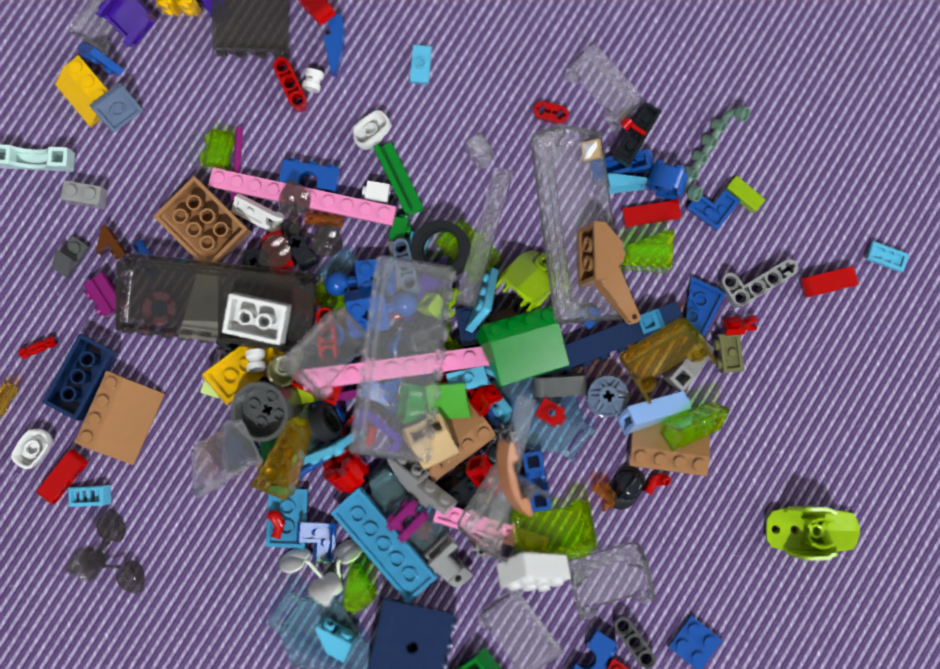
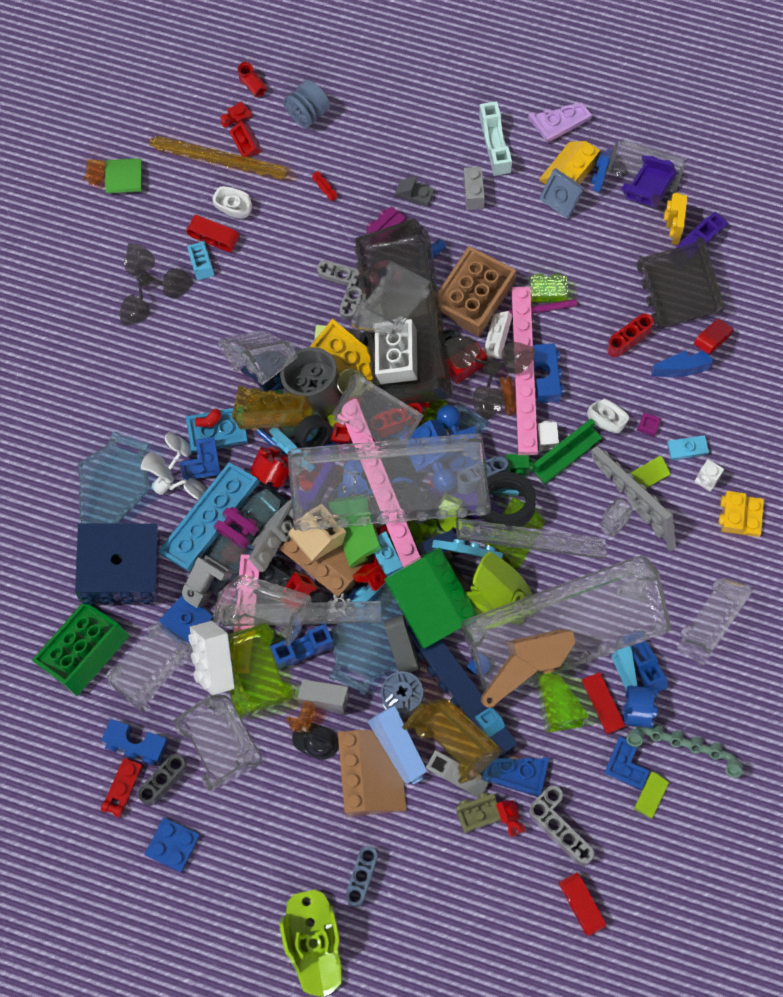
camera: 80 degrees right, 15 degrees down
(29, 89) = (560, 121): none -> lavender wing
(80, 377) = (306, 225): dark blue brick -> none
(108, 241) = (436, 219): reddish brown slope -> none
(119, 418) = (277, 266): medium nougat slope -> none
(155, 347) = (350, 281): none -> light grey beam
(204, 309) = (391, 301): none -> clear windscreen
(255, 360) = (357, 362): white wheel -> none
(304, 255) = (468, 383): black piece -> none
(312, 80) = (640, 353): white wheel -> none
(336, 639) = (111, 496): medium azure slope -> none
(358, 590) = (163, 501): clear neon green slope -> none
(387, 94) = (649, 424): none -> magenta tile
(439, 108) = (651, 472): none -> lime slope
(455, 52) = (709, 475): none -> white brick
(463, 125) = (642, 502): none -> light grey wing
(480, 589) = (183, 616): none -> blue plate
(500, 35) = (741, 514): none -> yellow plate
(505, 457) = (317, 596): nougat slope -> none
(544, 408) = (374, 632): red brick -> none
(552, 108) = (682, 581): red beam -> none
(589, 471) = (323, 696): none -> light grey slope
(591, 150) = (649, 625): tile -> none
(627, 123) = (687, 653): red hand -> none
(633, 140) = (679, 666): black tile -> none
(657, 480) = (329, 769): red arm -> none
(694, 425) = (392, 788): clear neon green slope -> none
(772, 477) = (361, 866): none -> sand blue beam
(887, 256) = (627, 962): medium azure plate -> none

